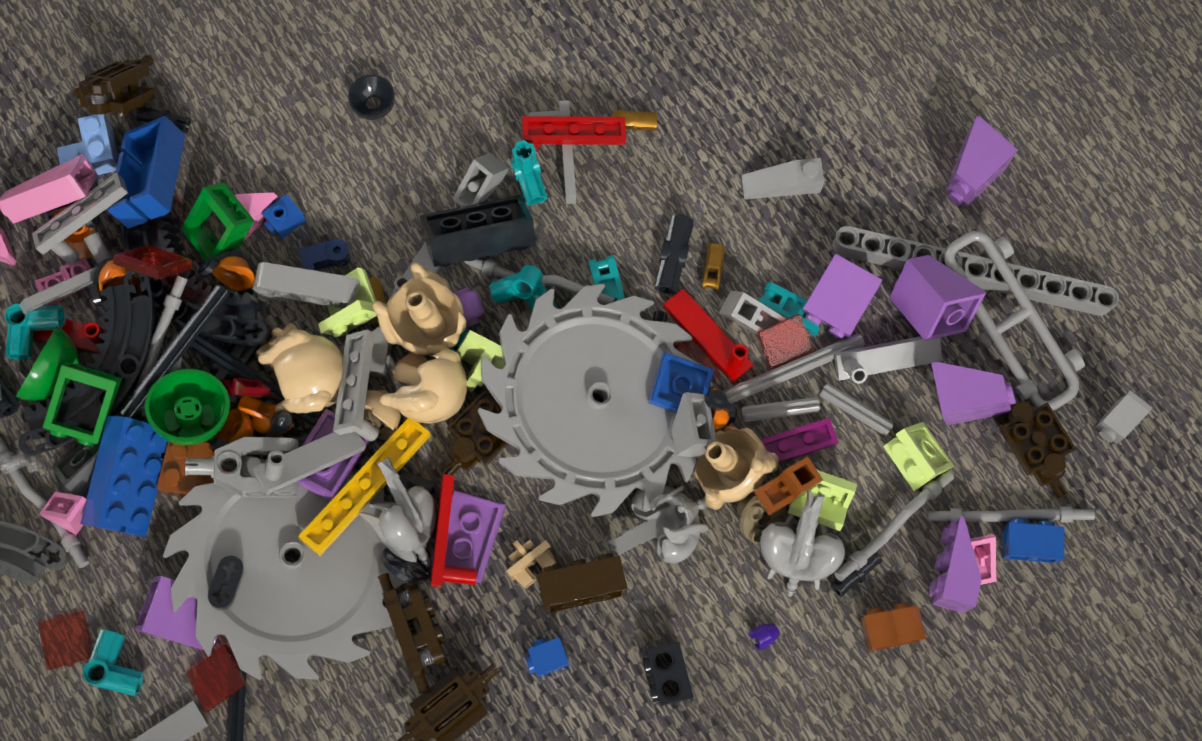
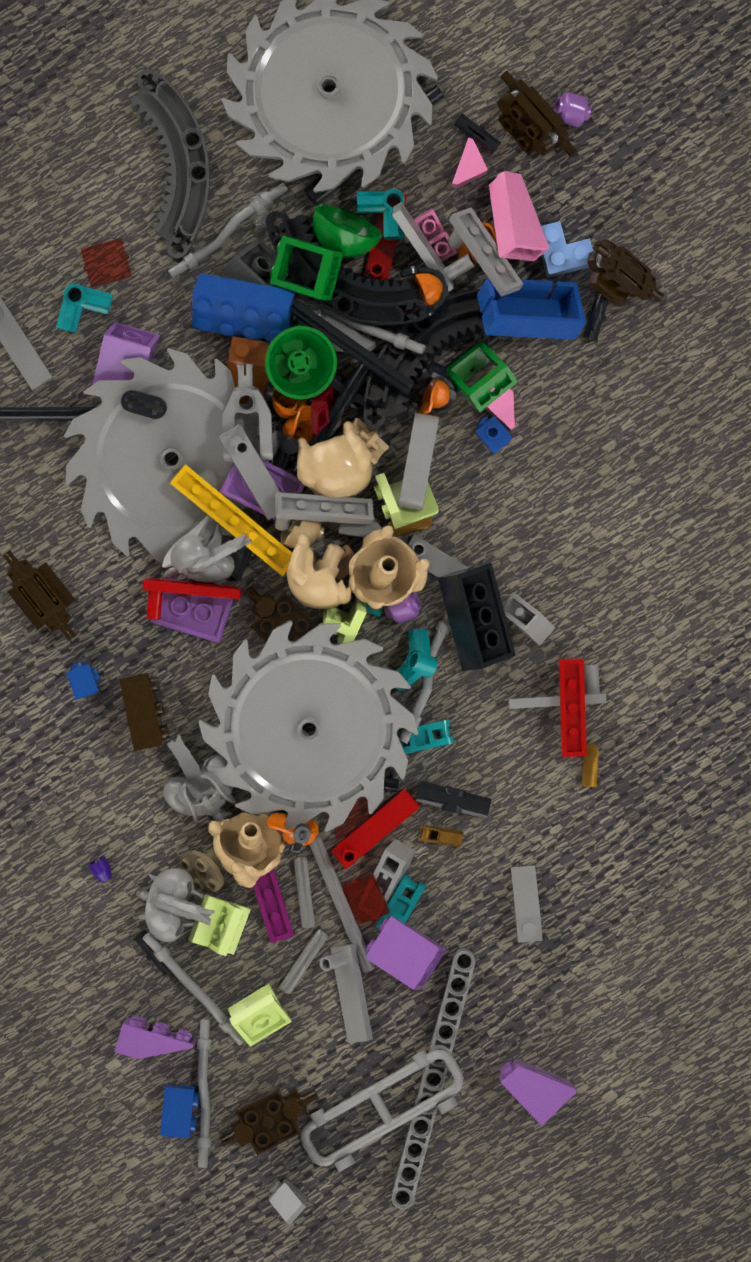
camera: 90 degrees right, 15 degrees up
(65, 511) = (216, 255): bright pink slope -> none
(152, 261) = (436, 323): clear red tile -> none
(216, 678) = (68, 395): clear red piece -> none
(324, 255) = (457, 478): dark blue leg -> none
(368, 87) = (623, 504): black piece -> none
(404, 569) = (159, 552): black wheel -> none
(411, 646) = (122, 572): dark brown piece -> none
(520, 570) = (172, 675): tan hips -> none
(528, 173) = (536, 663): teal piece -> none
(675, 378) = (321, 802): blue tile -> none
(675, 673) = (68, 790): black brick -> none
(693, 426) = (279, 812): light grey slope -> none
(788, 486) = (221, 894): dark orange brick -> none
(893, 627) = (105, 981): dark orange brick -> none
(935, 298) = (400, 1038): medium lavender slope -> none
(970, 393) = (310, 1062): medium lavender slope -> none
(985, 554) = (164, 1064): bright pink slope -> none

